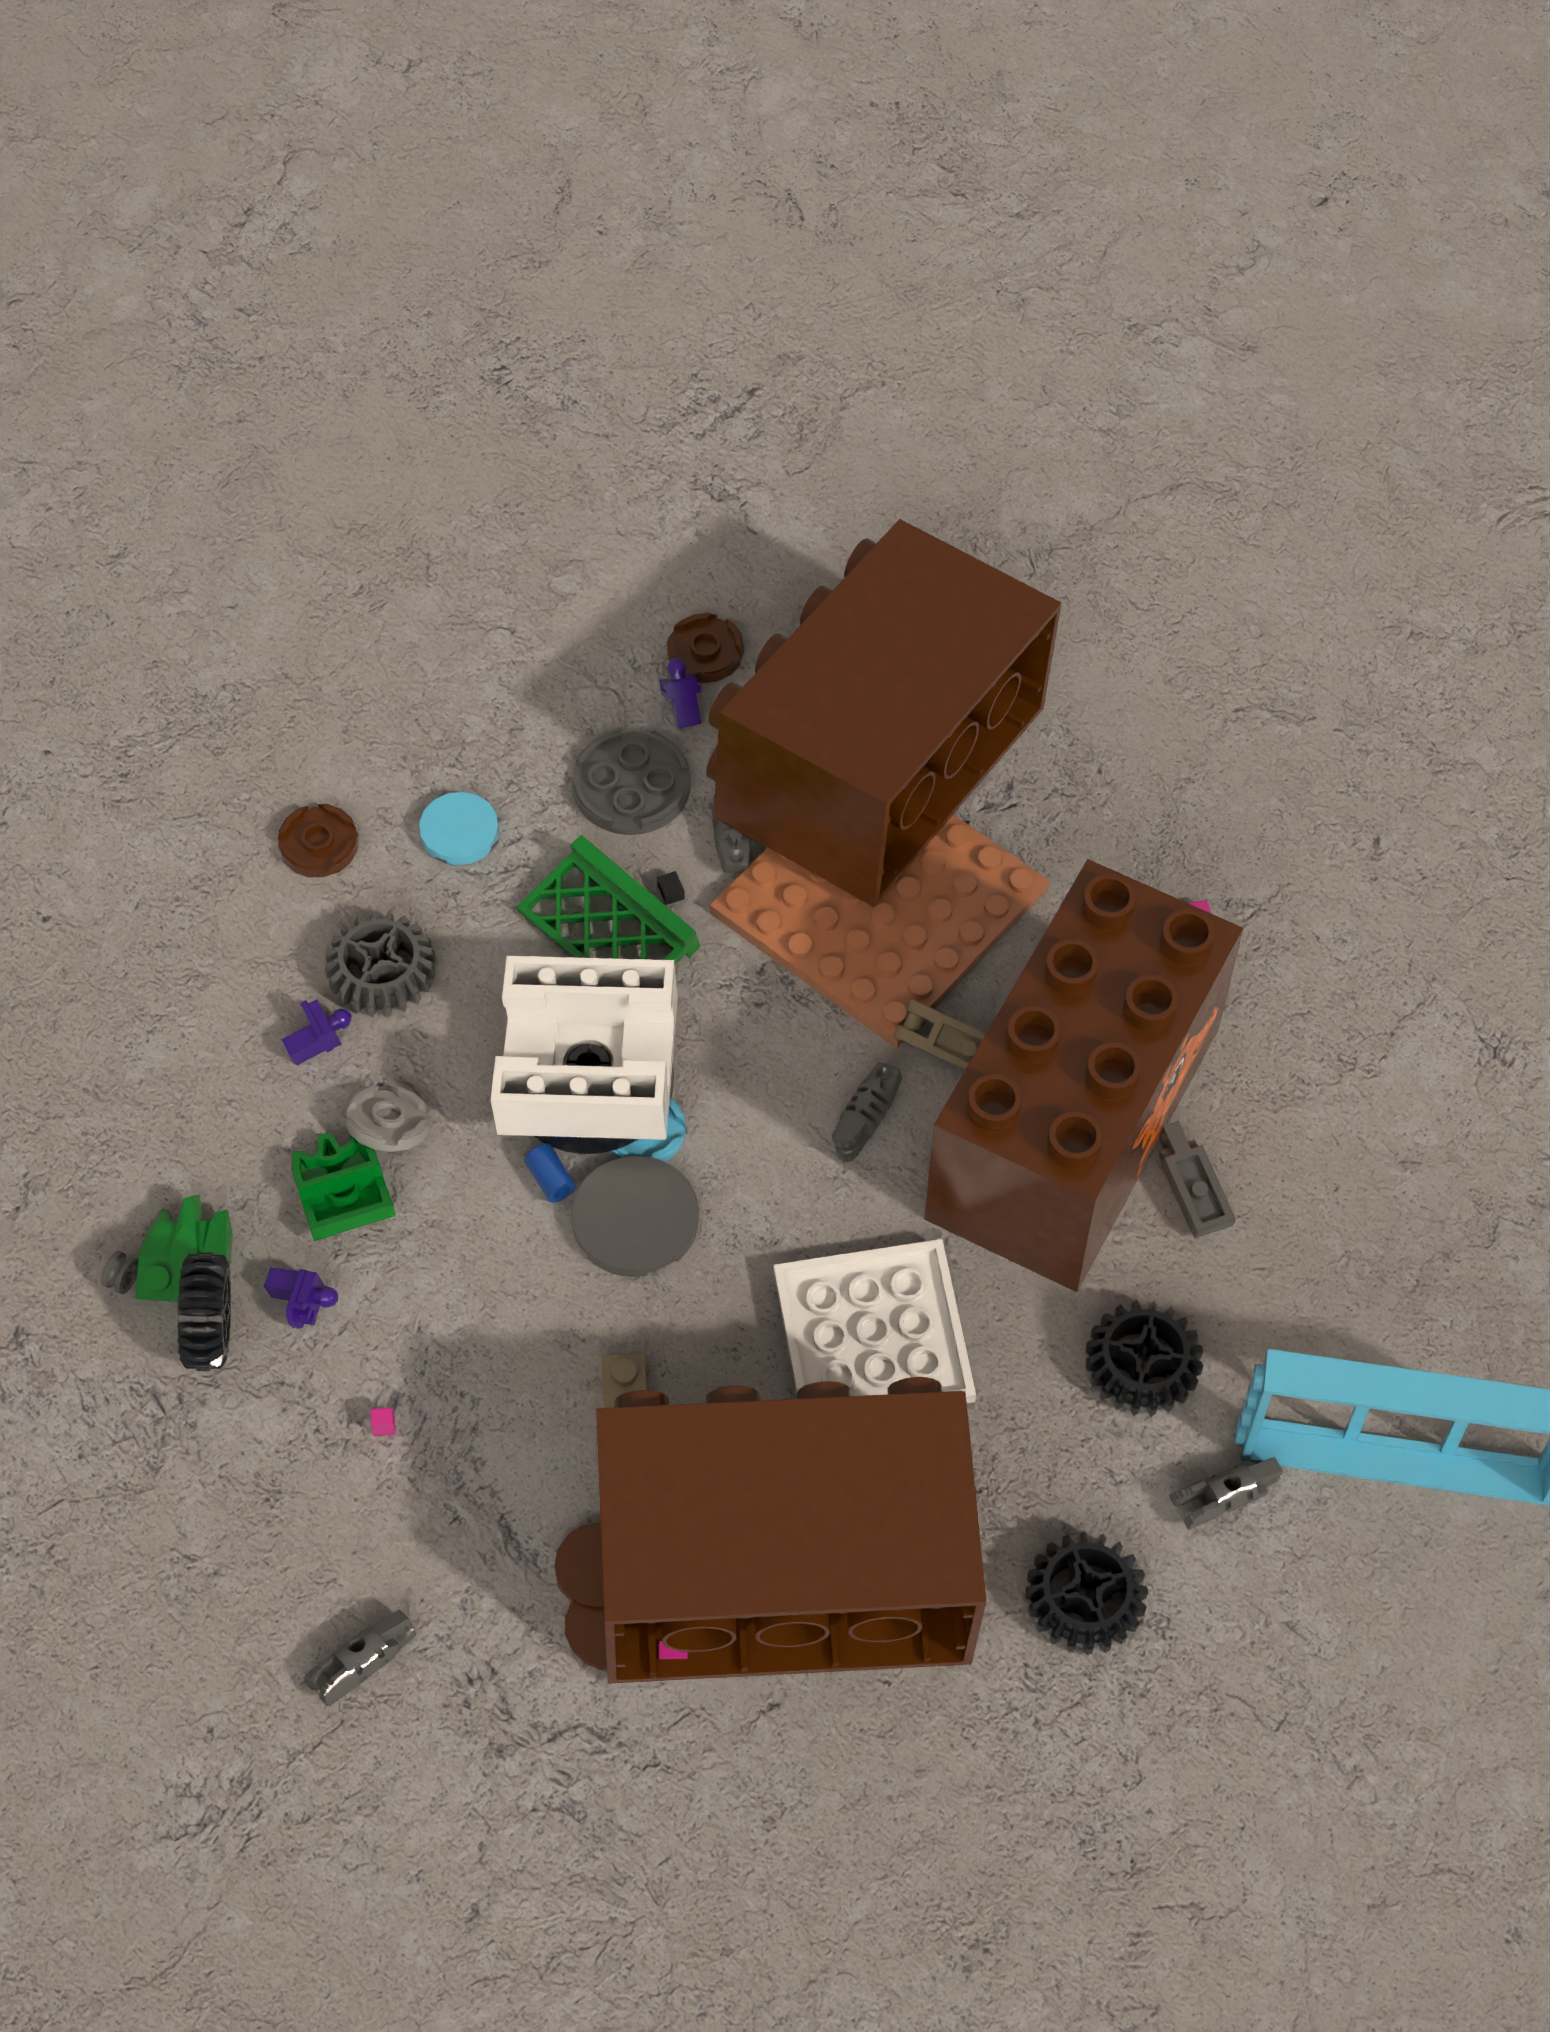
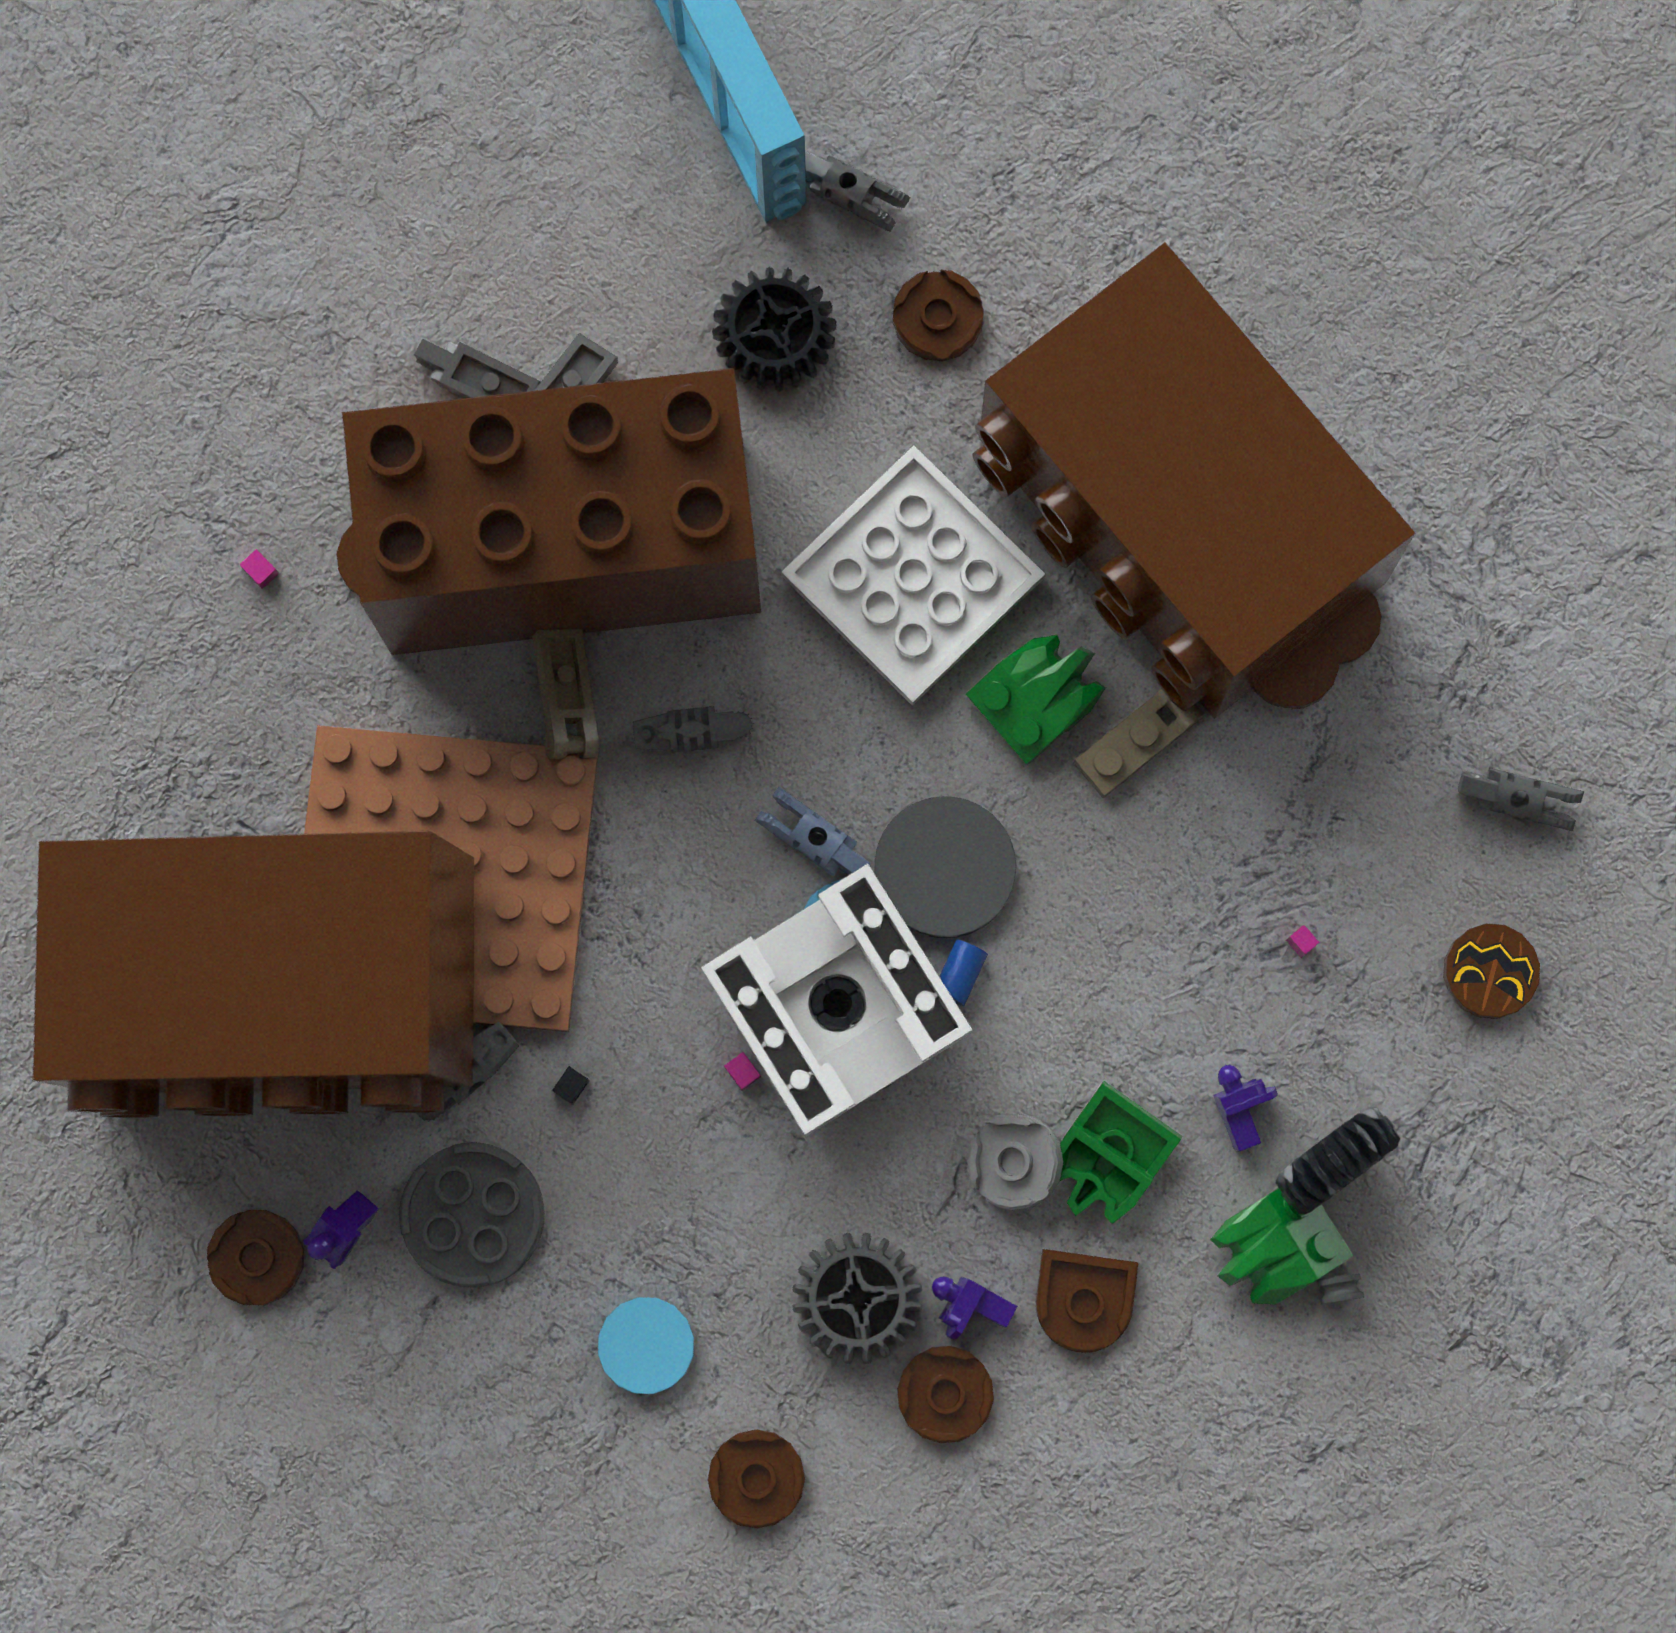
camera: 125 degrees left, 20 degrees up
(250, 1544) = (1491, 971): none -> tile
(260, 1109) = (1084, 1299): none -> reddish brown tile
(272, 983) = (945, 1394): none -> reddish brown tile
(624, 891) = (615, 1106): green fence -> none
(712, 1353) = (1036, 695): none -> green plate
(723, 1140) = (832, 855): none -> sand blue hinge
(1075, 1493) = (938, 315): none -> reddish brown tile
(1118, 1578) = (1054, 268): black gear -> none
(1247, 1132) = (471, 371): none -> dark grey hinge

